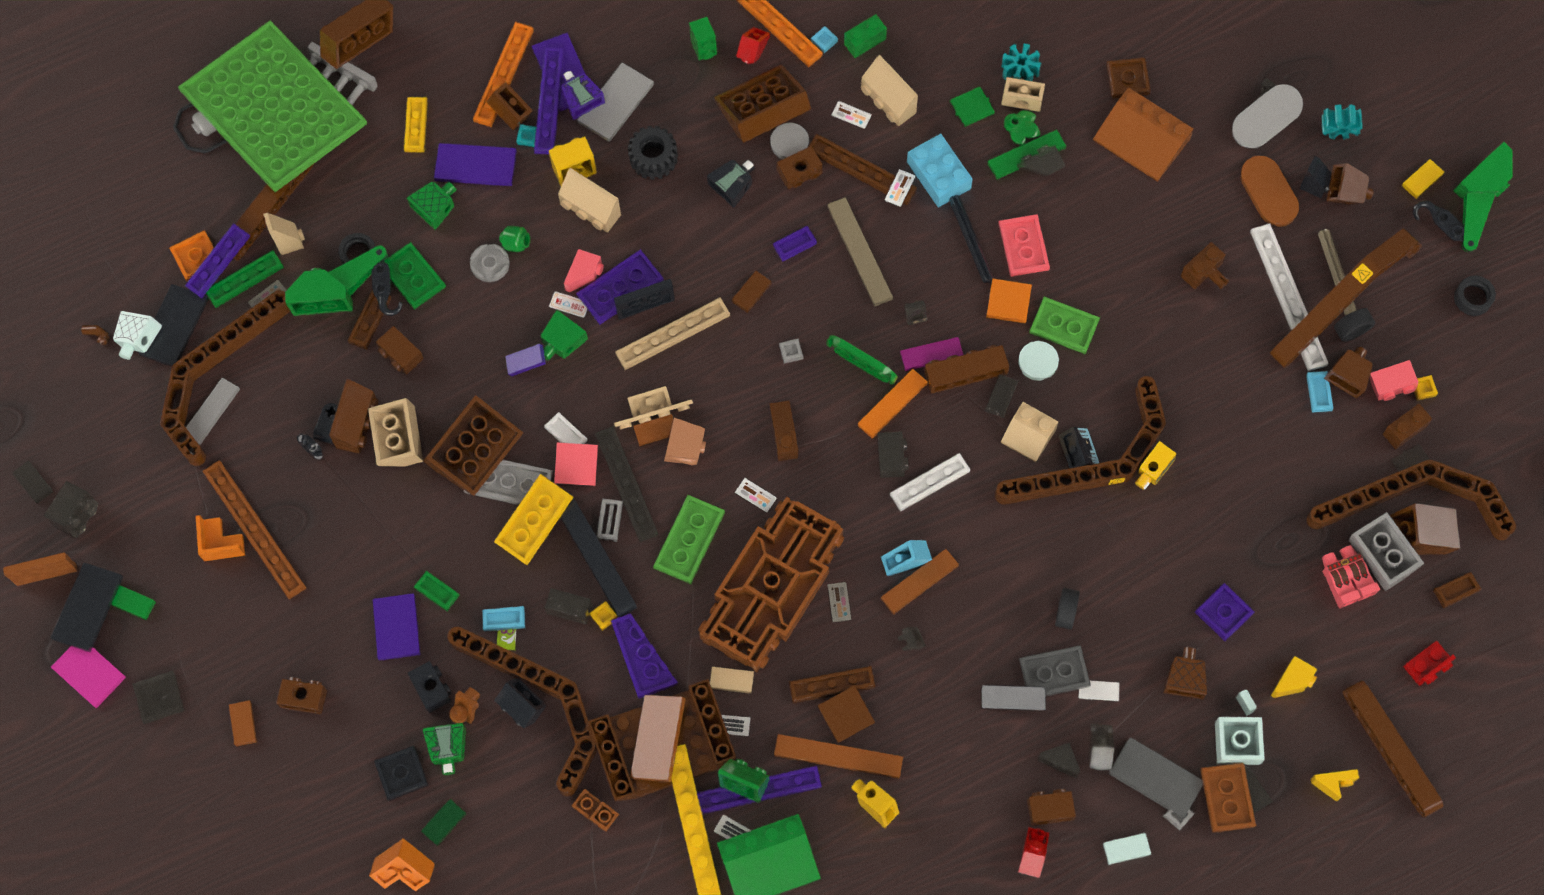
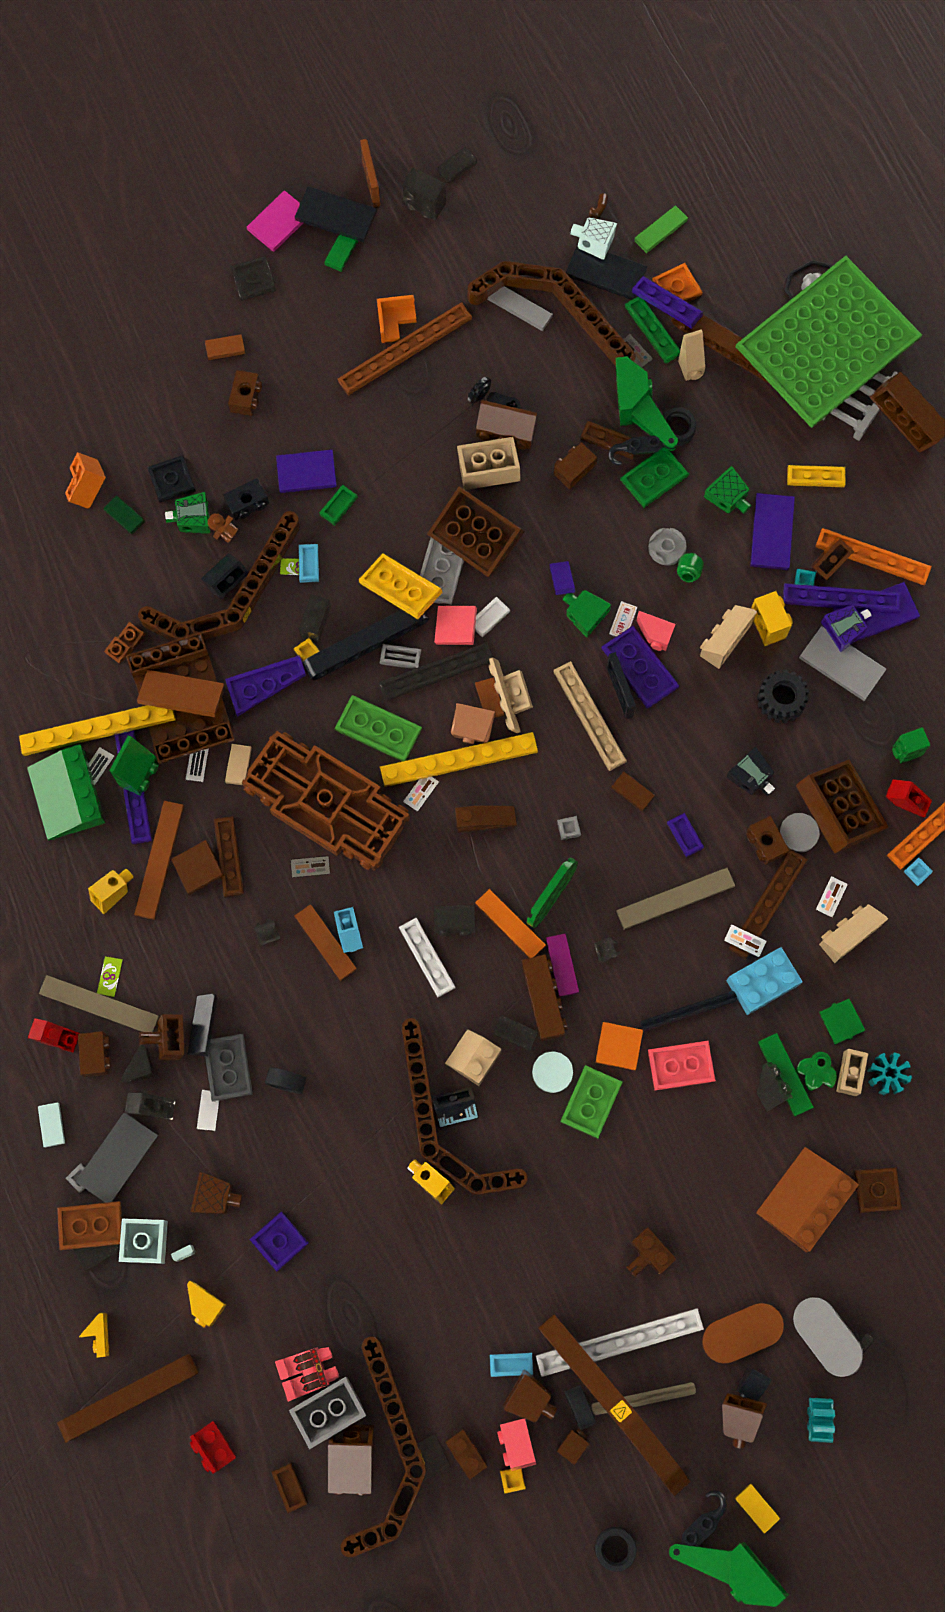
camera: 90 degrees right, 5 degrees up
(127, 272) = (661, 229): none -> bright green tile
(722, 458) = (458, 759): none -> yellow plate
(865, 36) = (920, 911): green brick -> none
(966, 801) = (109, 976): none -> lime sticker
(997, 809) = (98, 1005): none -> dark tan tile
(1030, 729) = (168, 1037): none -> reddish brown brick
(1388, 333) = (573, 1445): none -> reddish brown brick

